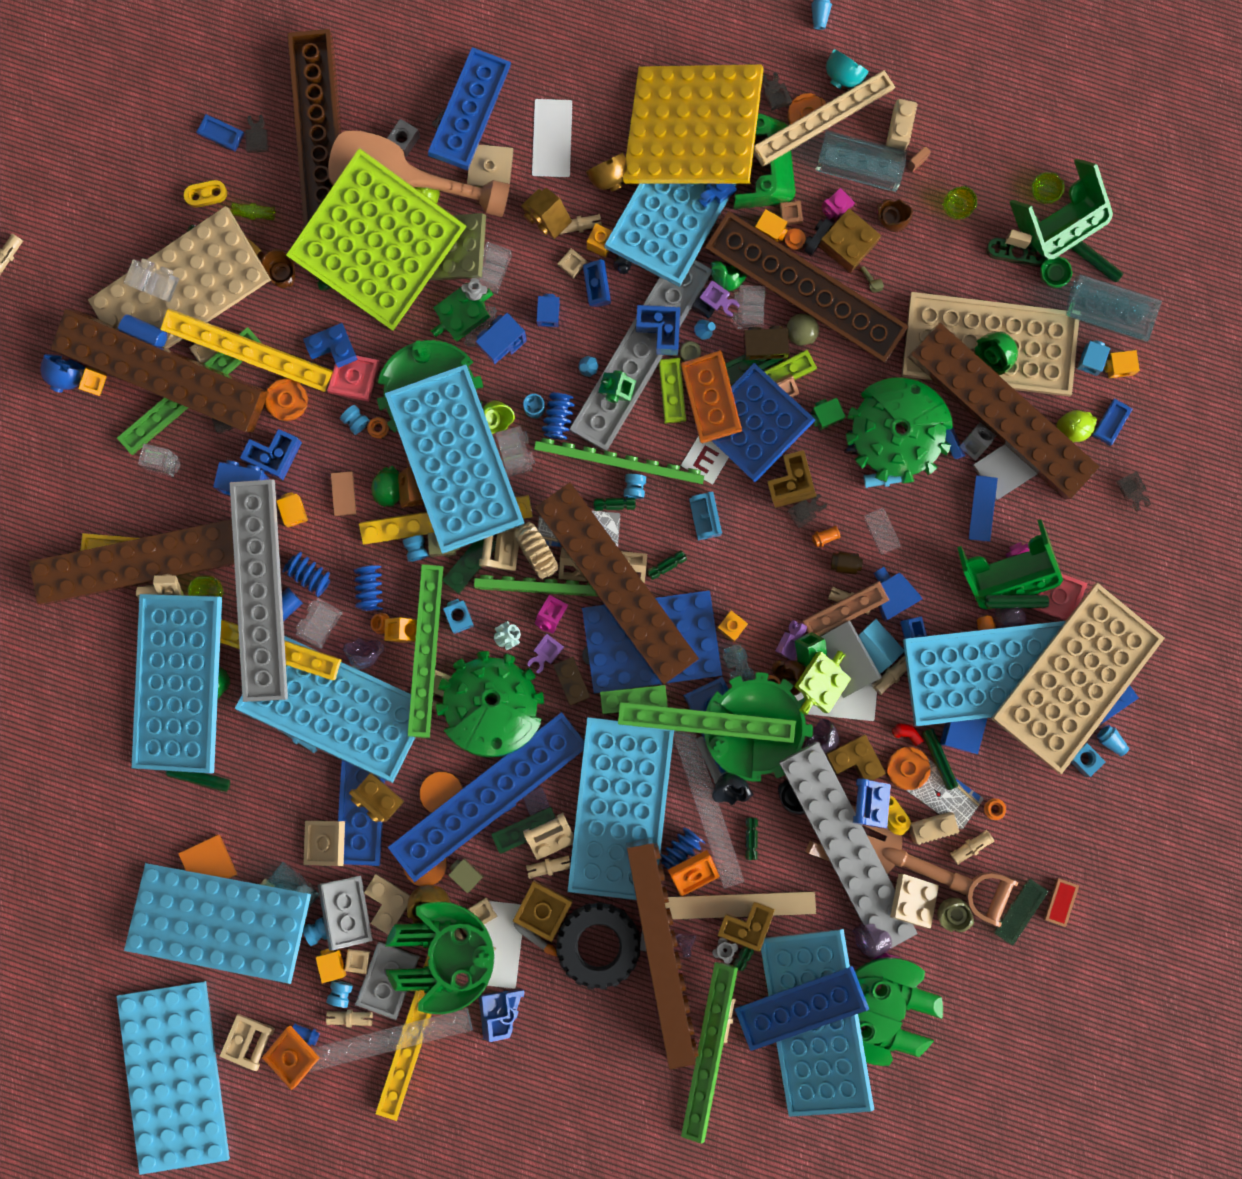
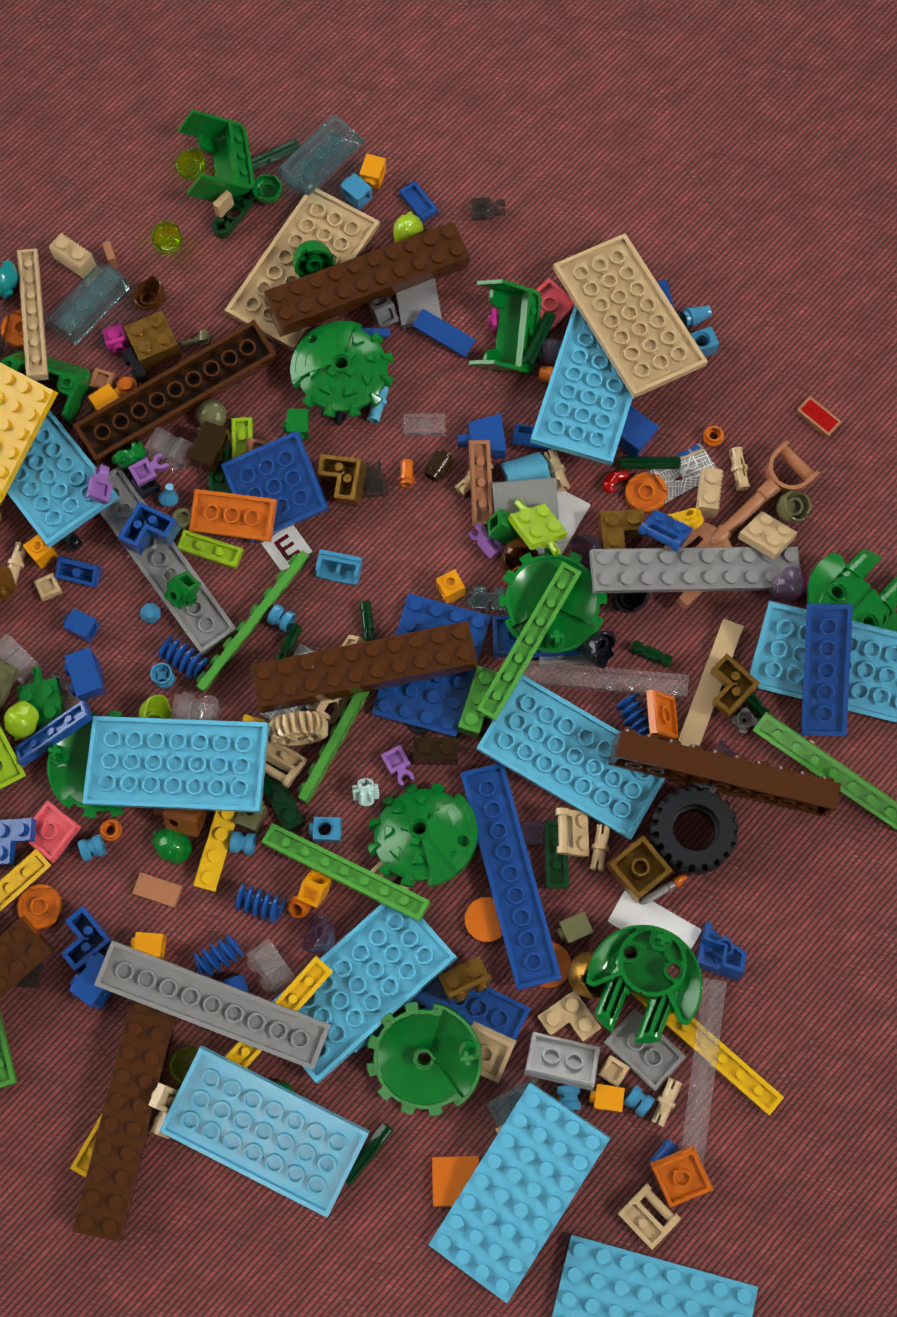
camera: 60 degrees left, 10 degrees down
(159, 460) = (37, 1054): clear brick -> none
(293, 817) = (429, 1083): none -> green piece
(438, 302) = (21, 720): none -> lime hair
(438, 336) = (53, 733): none -> blue tile
(474, 294) = (26, 680): light grey plate -> none
(483, 911) = (615, 924): tan tile -> none
(550, 614) = (364, 744): dark pink bracket -> none
(677, 265) = (98, 487): none -> medium lavender plate
(716, 192) = (50, 428): blue plate -> none
(1021, 912) = (813, 452): clear green plate -> none

